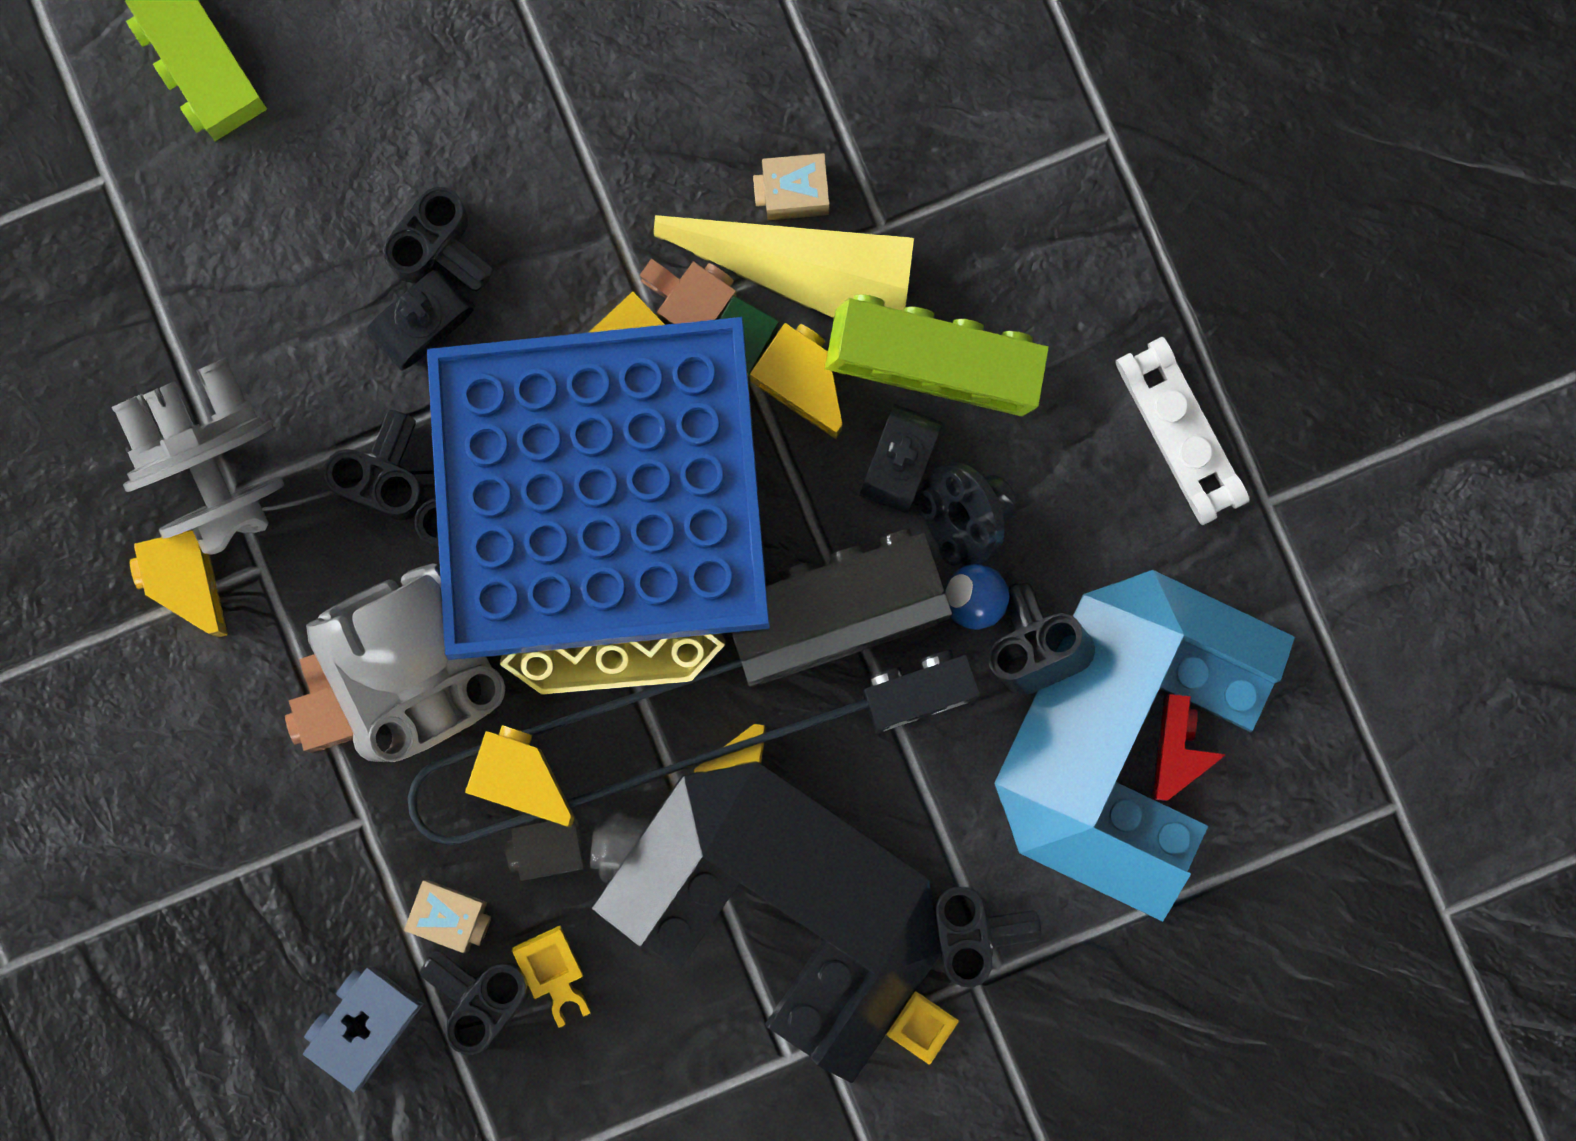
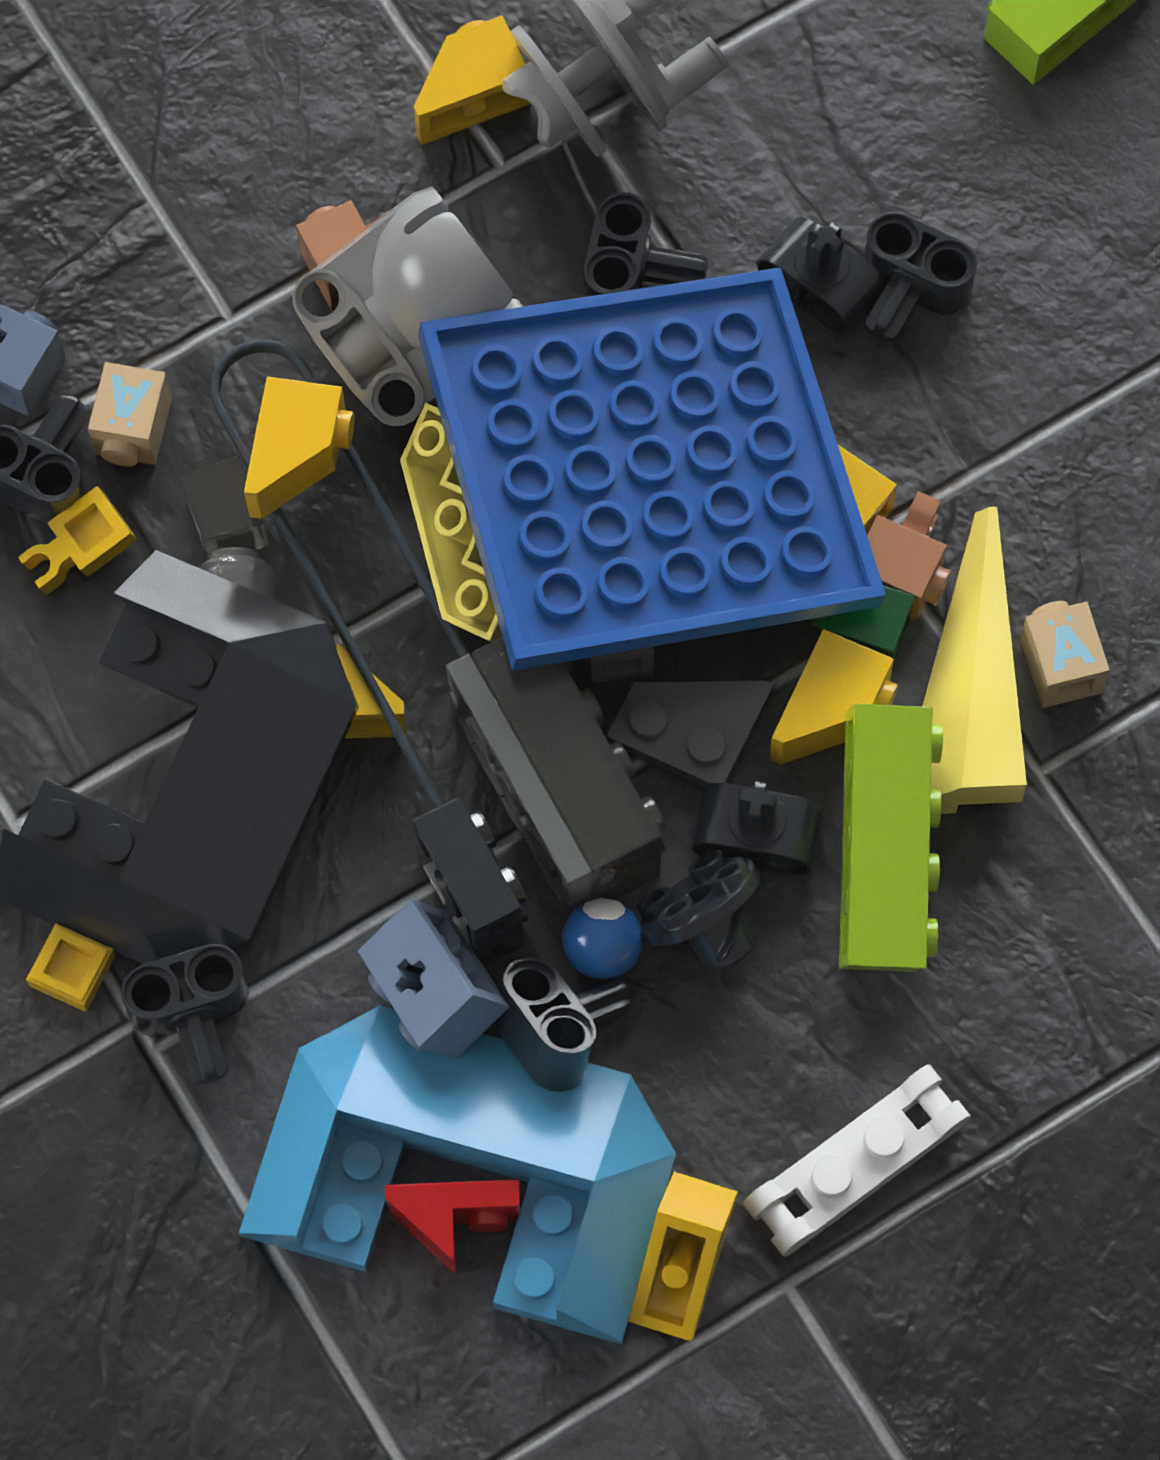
camera: 80 degrees right, 15 degrees down
(801, 496) = (690, 726): none -> dark grey wing
(994, 736) = (432, 980): none -> sand blue brick
(1239, 576) = (682, 1256): none -> yellow slope

